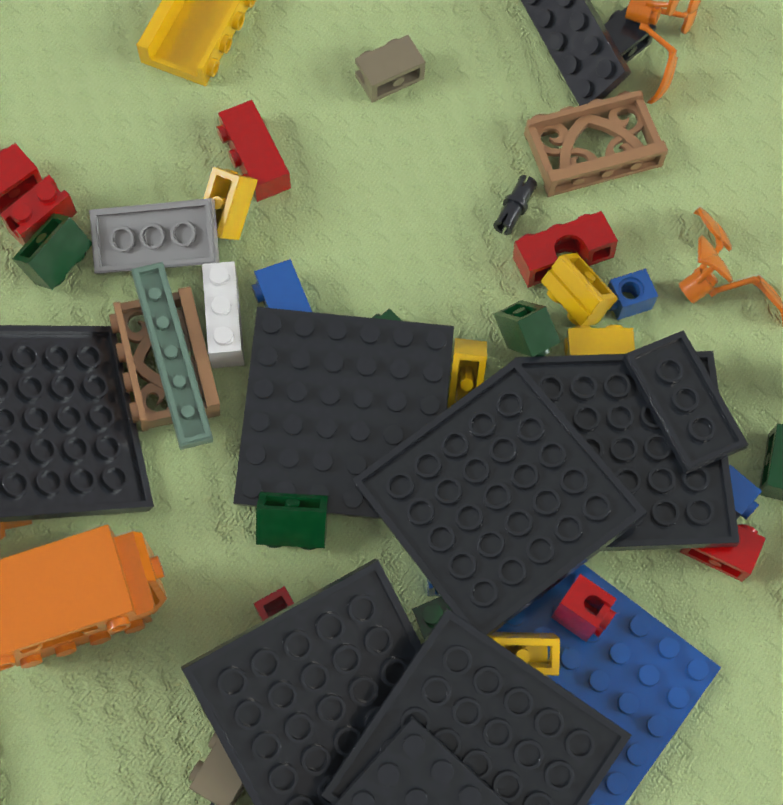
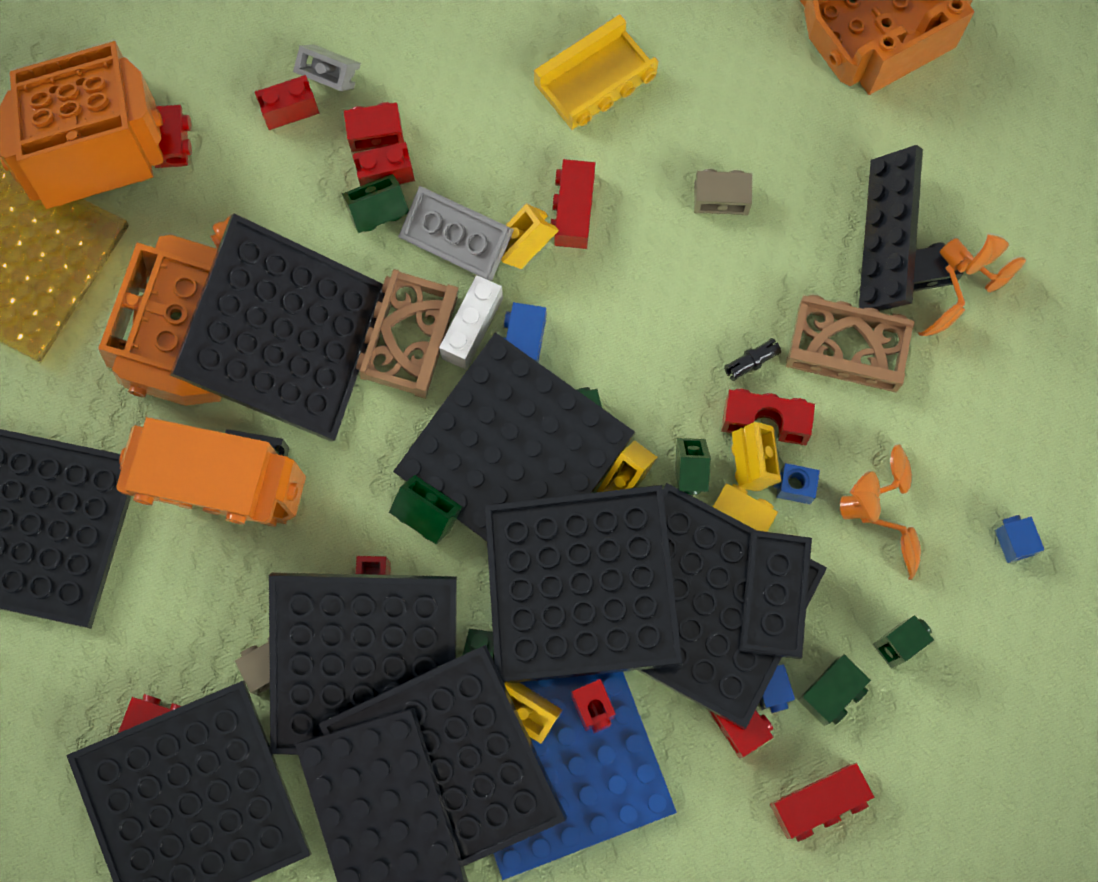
camera: 35 degrees right, 5 degrees up
(172, 356) = (412, 334): sand green tile -> none

